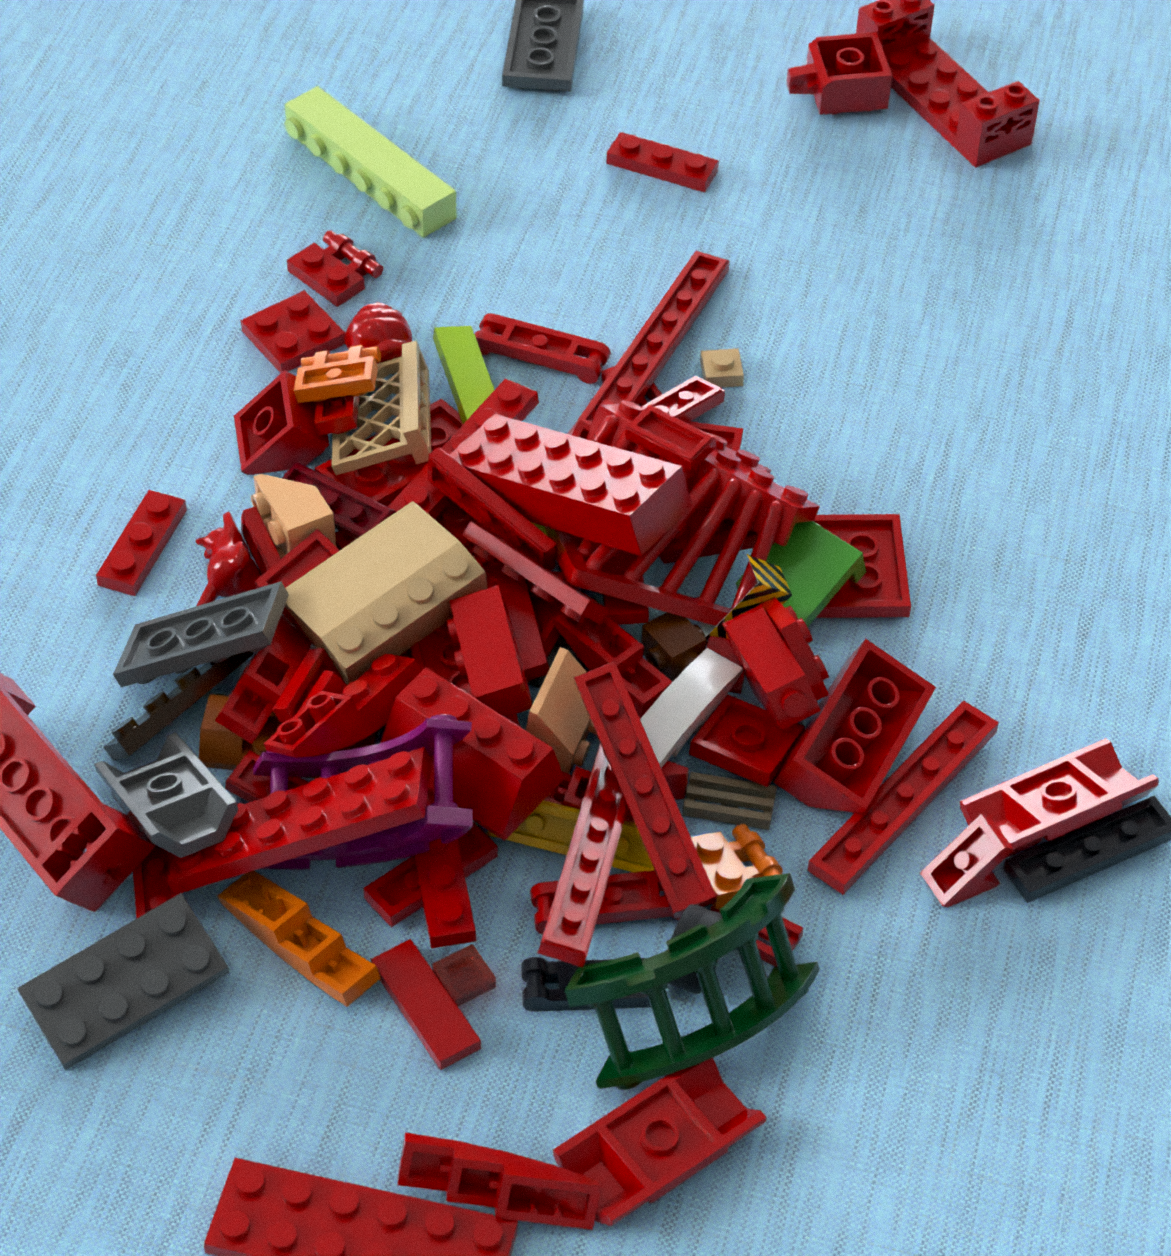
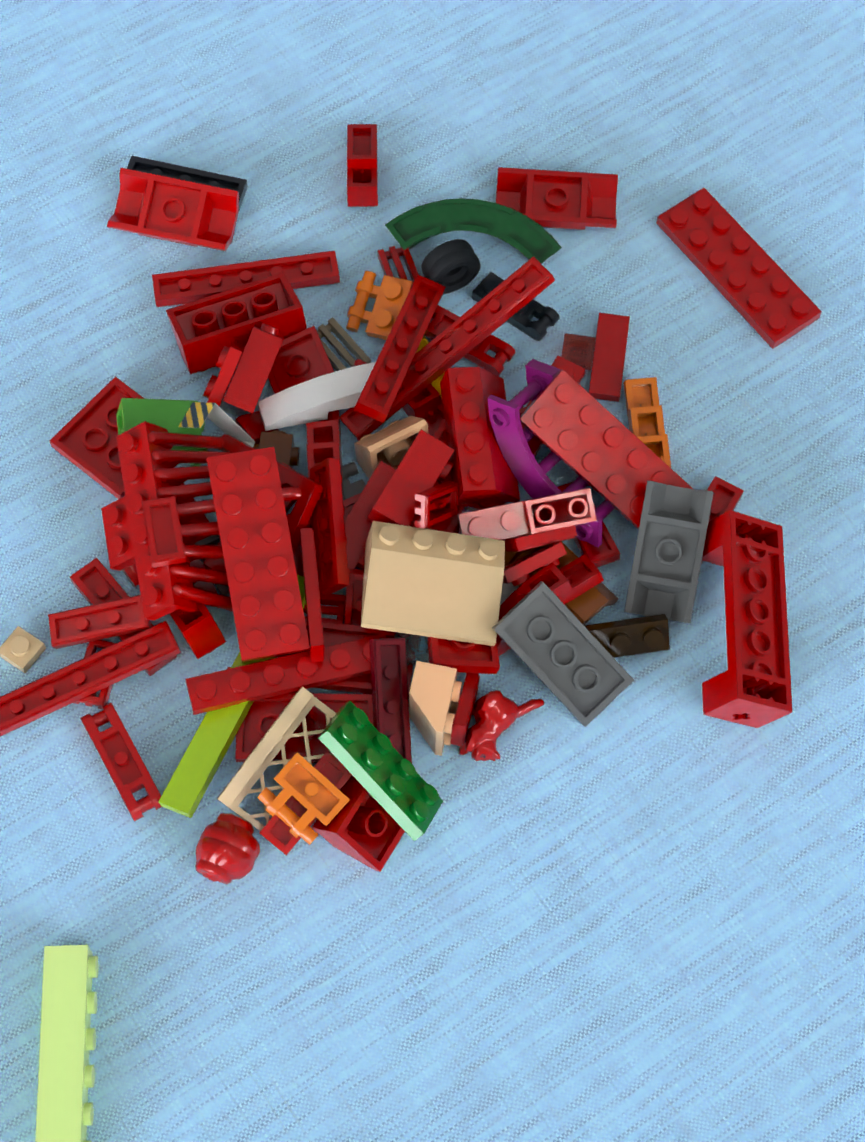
camera: 140 degrees left, 15 degrees up
(123, 981) = (767, 474): dark grey plate -> none
(141, 542) = (529, 800): red plate -> none
(289, 433) = (381, 770): none -> green plate
(292, 331) = (273, 921): red plate -> none
(327, 274) = (199, 962): red plate -> none
(442, 637) = (437, 498): none -> red tile
(499, 1179) = (650, 230): red slope -> none
(933, 1017) = (362, 165): none -> red slope
(968, 863) = (259, 215): slope -> none

